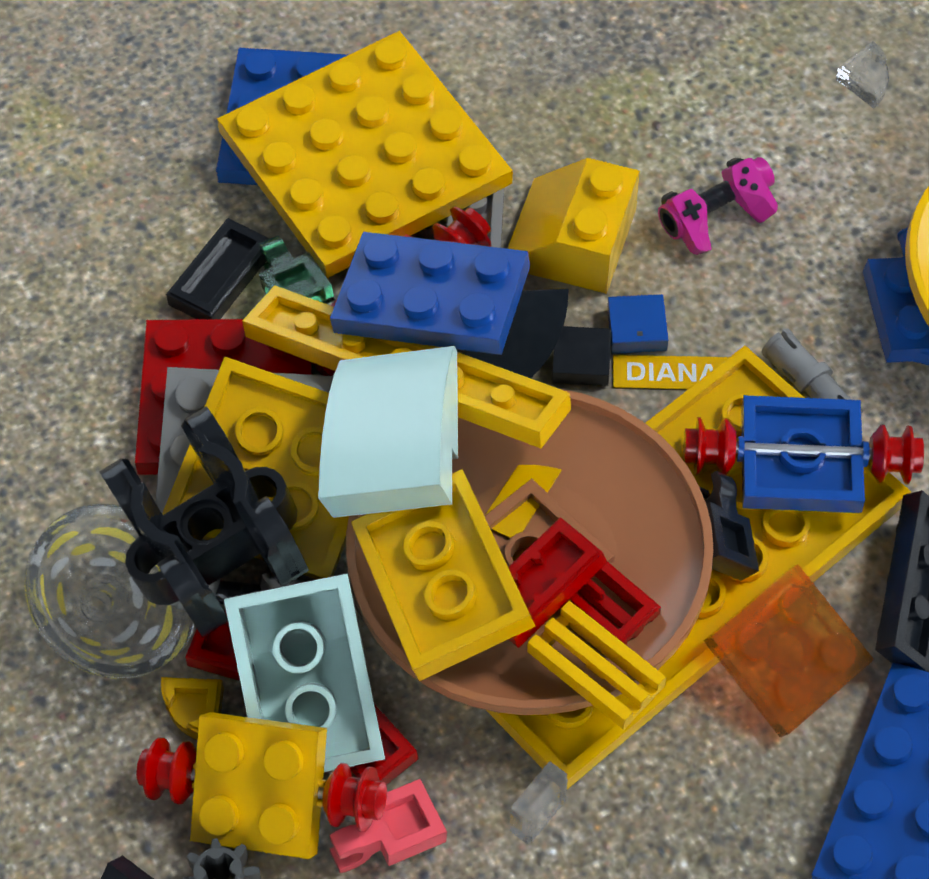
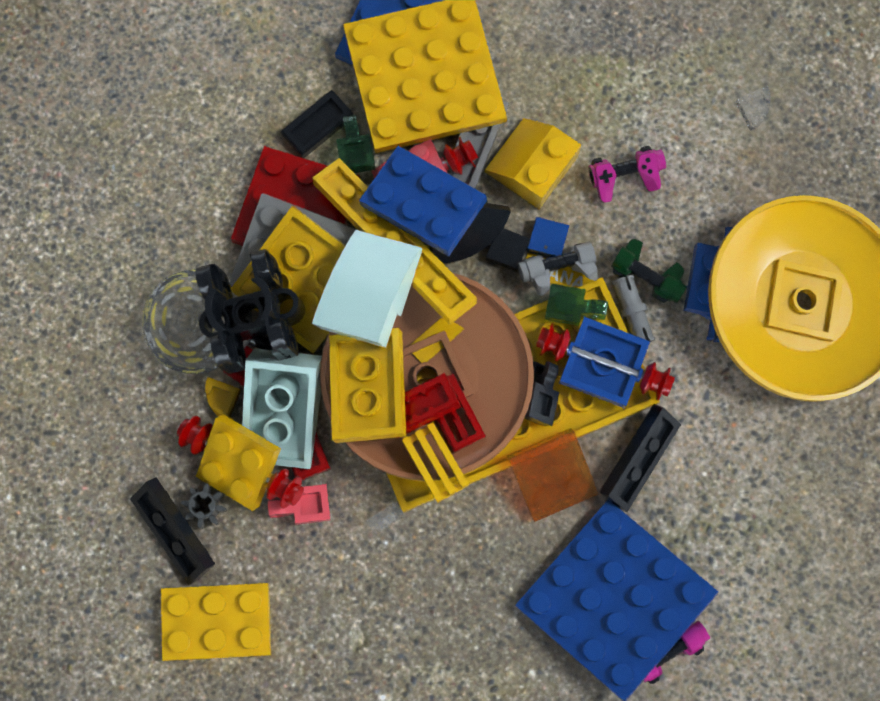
camera: 15 degrees right, 20 degrees up
(643, 364) = (537, 269): none -> light grey piece
(715, 393) = (568, 305): none -> clear green plate
(844, 334) = (665, 286): none -> dark green piece

